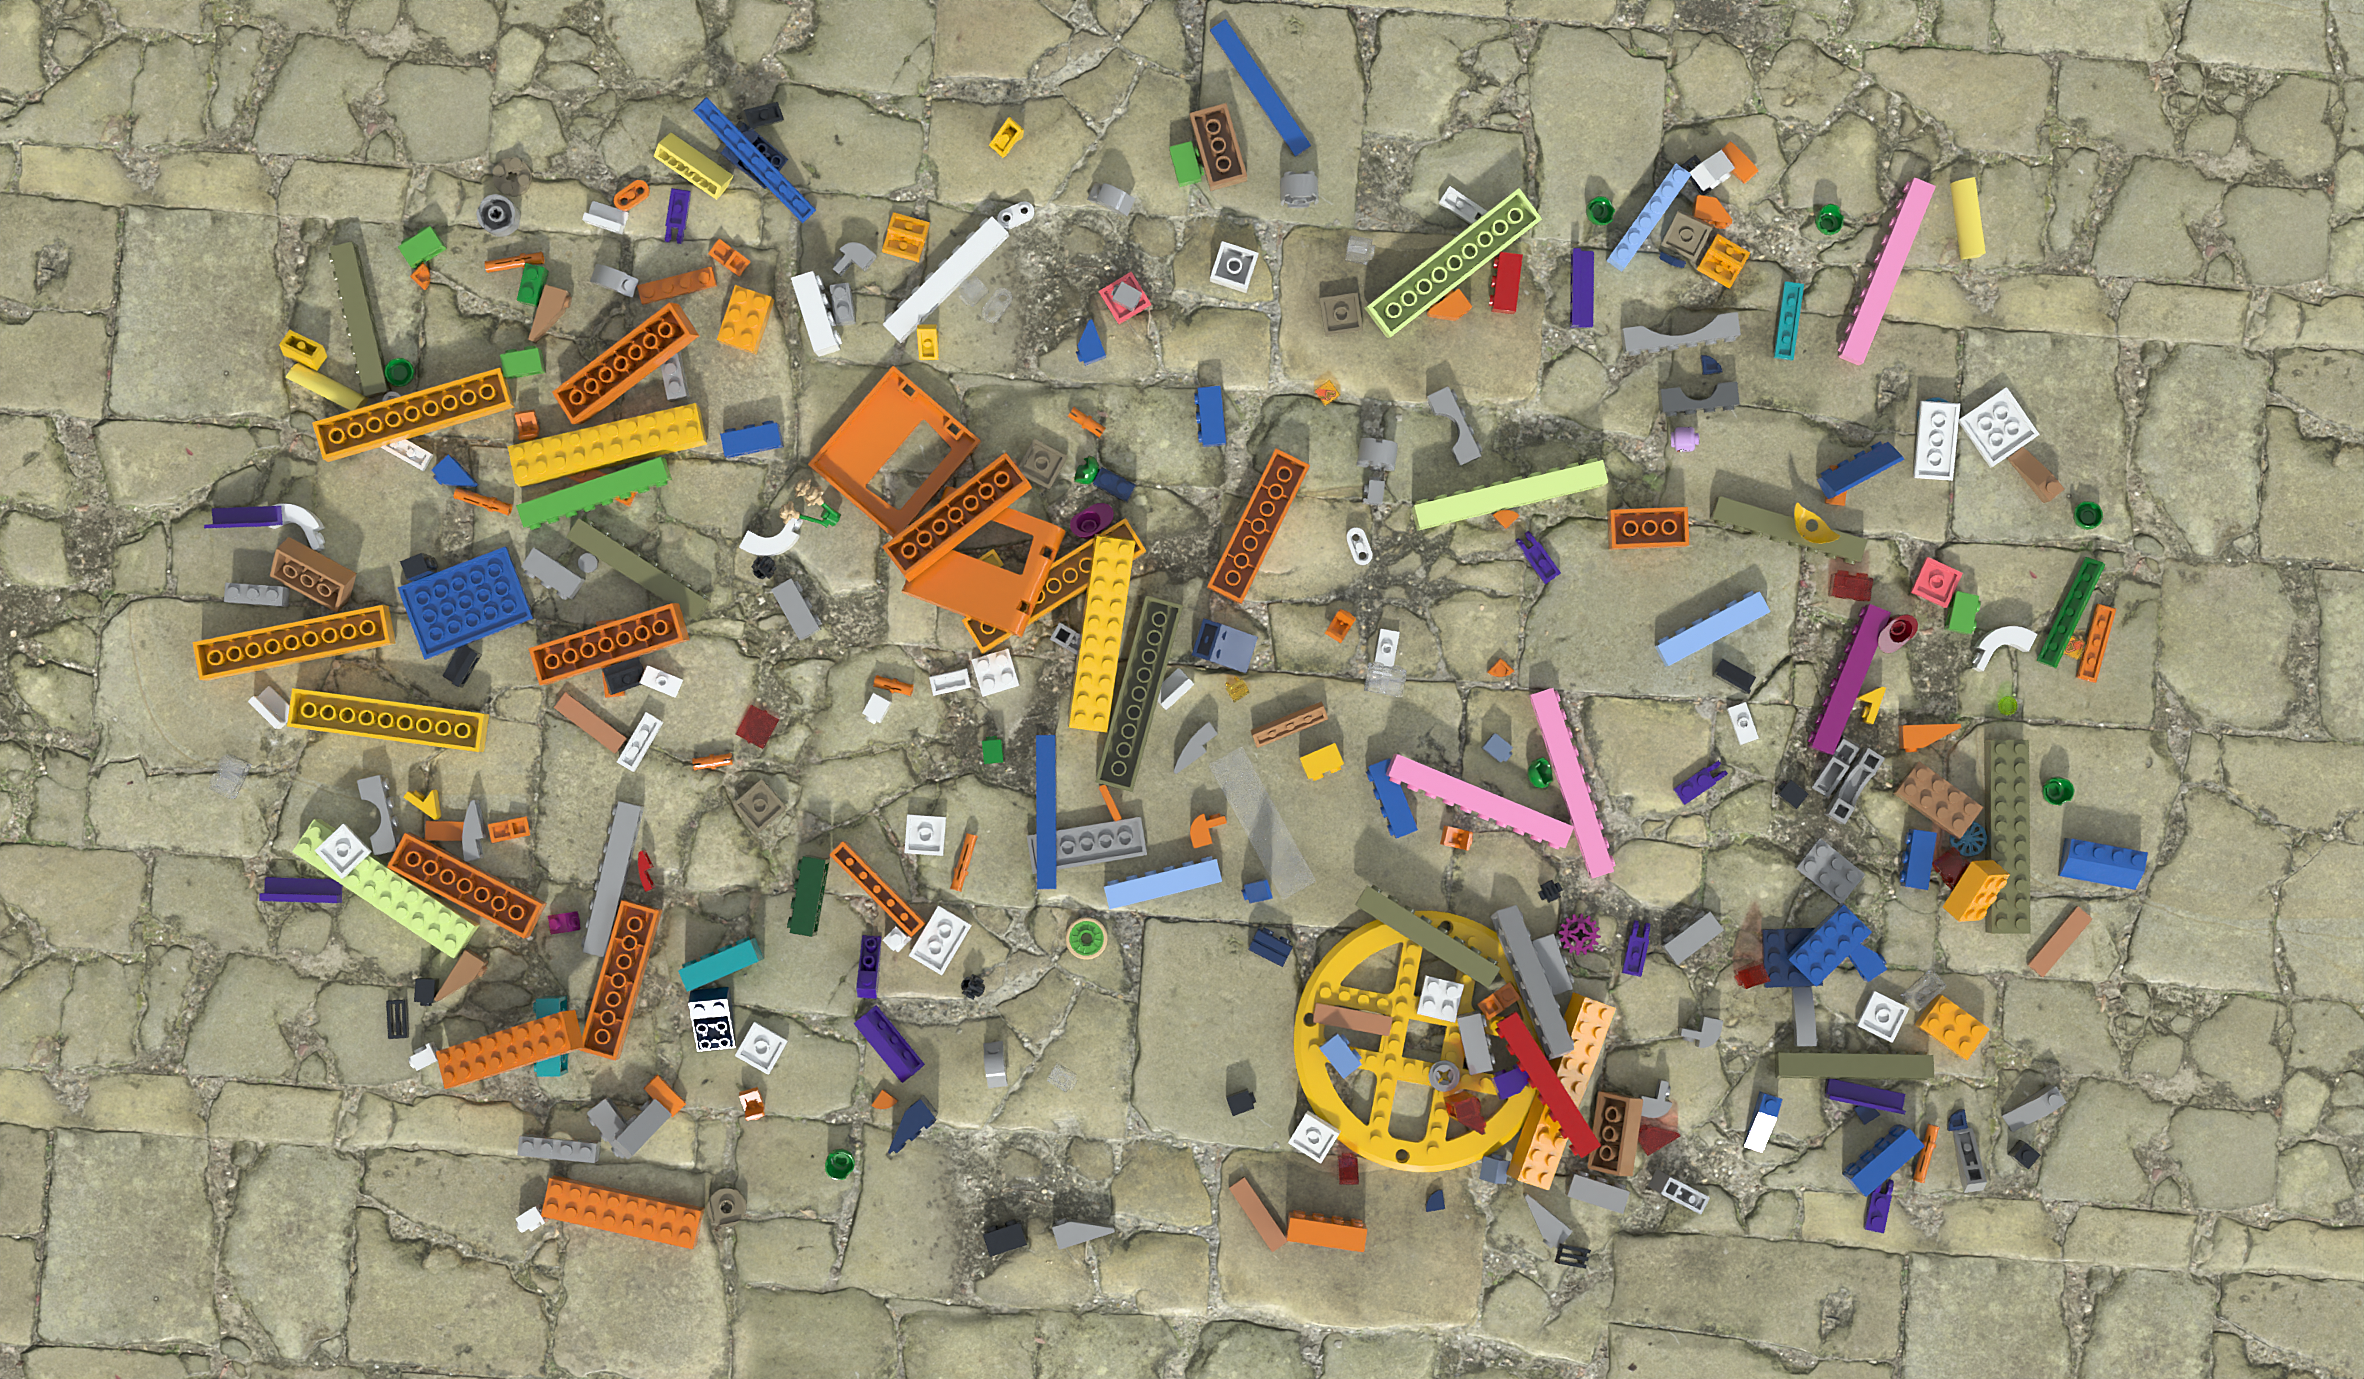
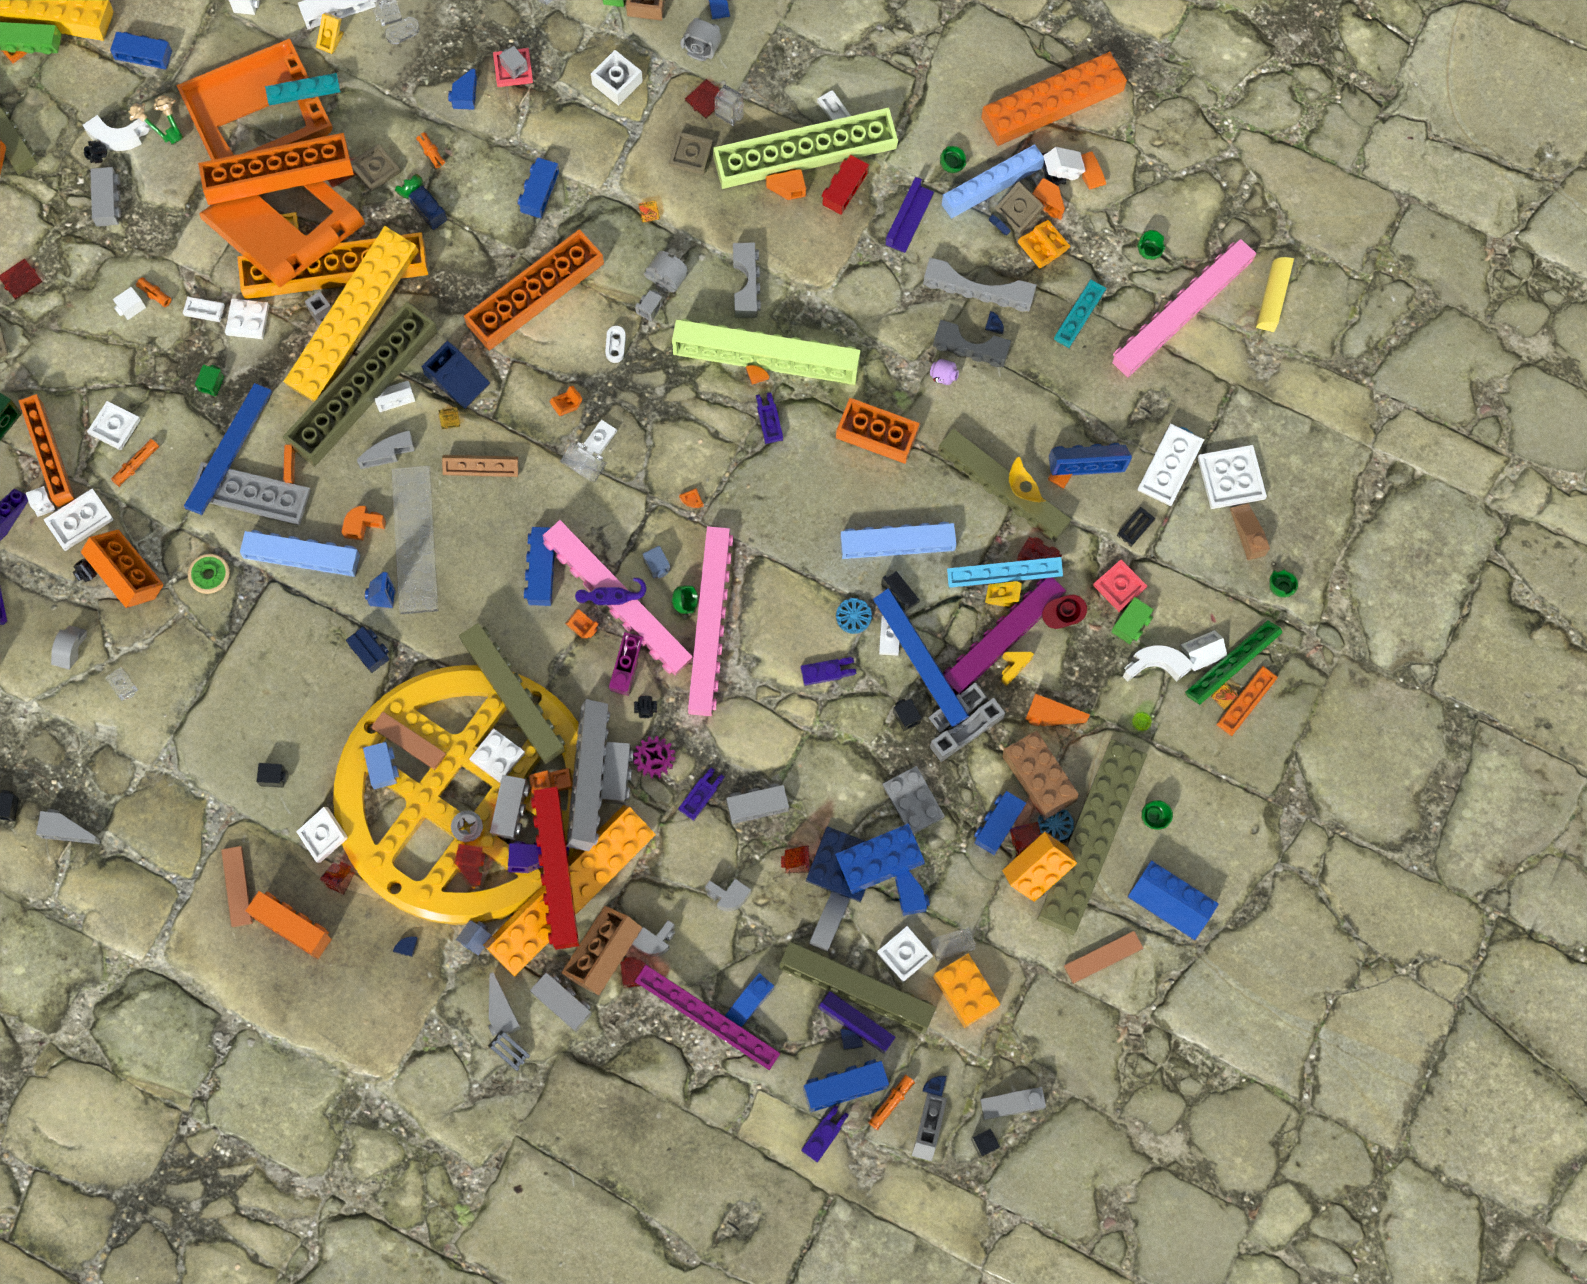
camera: 20 degrees right, 15 degrees down
(934, 415) = (302, 89): none -> teal plate
(1009, 972) = (122, 568): none -> orange brick
(1092, 520) = (397, 224): magenta piece -> none
(1321, 761) = (493, 508): yellow brick -> none
(1328, 247) = (703, 98): none -> clear red piece
(1477, 805) = (611, 595): none -> dark purple piece
(1515, 860) = (626, 664): none -> magenta slope
(1671, 100) = (1053, 98): none -> orange brick
(1678, 1191) = (639, 1035): light grey slope -> none
(1701, 719) = (853, 616): none -> dark azure wheel
(1734, 1151) = (707, 1017): none -> magenta plate
(1783, 736) = (921, 657): none -> blue tile
(1827, 619) = (1005, 572): none -> medium azure plate
(1832, 638) = (1003, 593): none -> yellow slope
(1920, 512) = (1126, 538): none -> black tile
(2038, 610) = (1205, 650): none -> white panel

